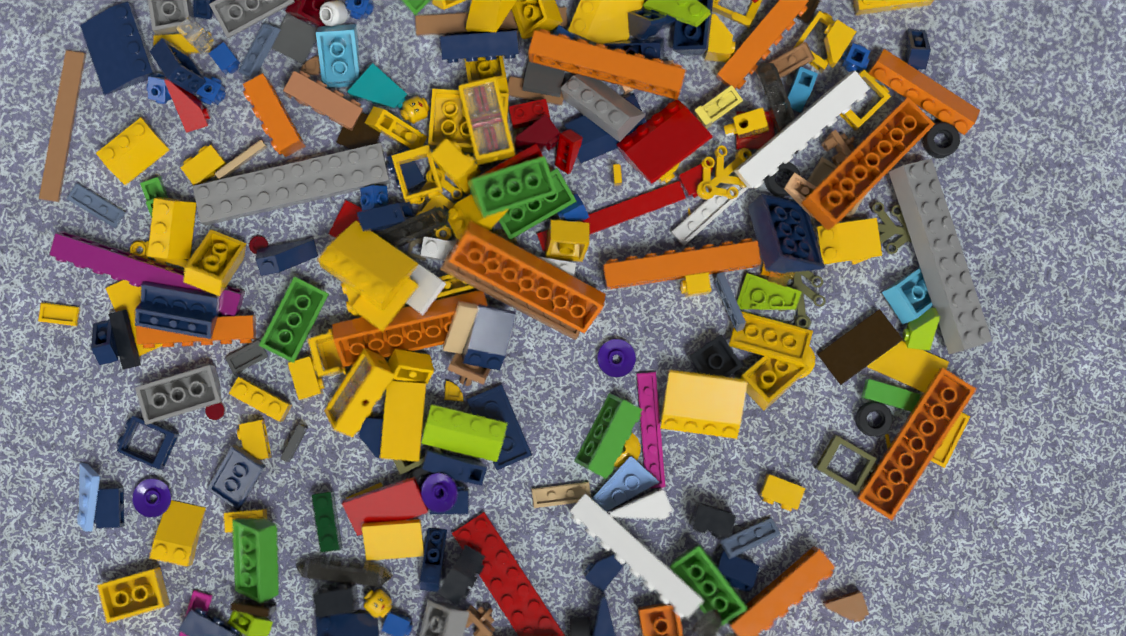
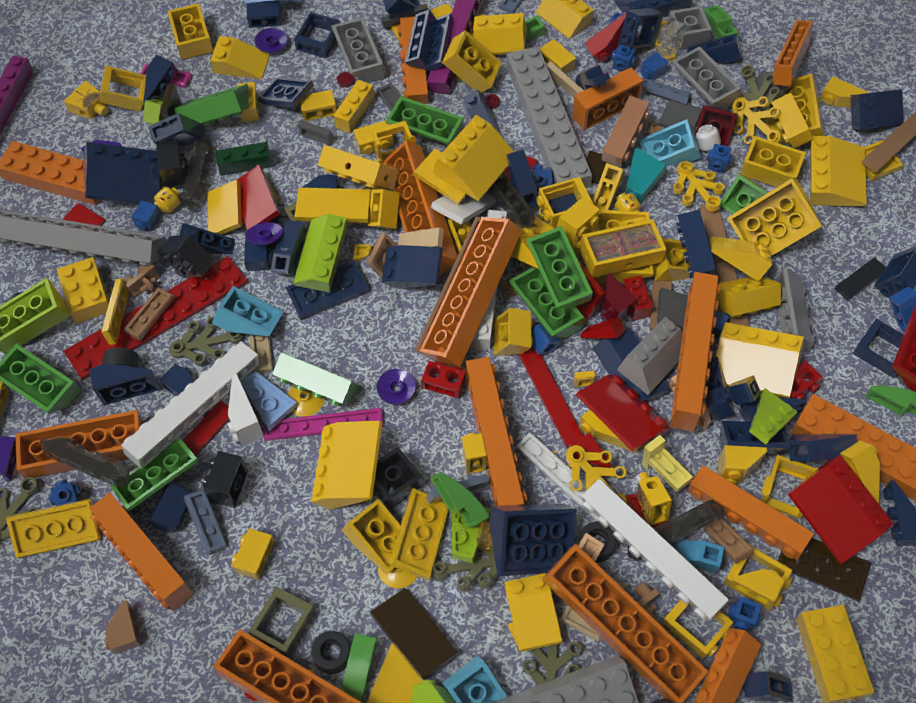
camera: 90 degrees right, 25 degrees down
(256, 128) = (592, 77): none -> dark blue slope
(297, 599) = (177, 126): none -> window
(390, 33) = (686, 170): none -> yellow plant
(523, 610) = (149, 314): none -> medium nougat tile
(531, 507) = (246, 314): none -> medium azure slope
(555, 554) = (202, 342): none -> olive plant
(614, 312) = (441, 383): none -> red brick
(651, 541) = (207, 428): none -> red tile
(751, 299) = (459, 499): none -> bright green slope

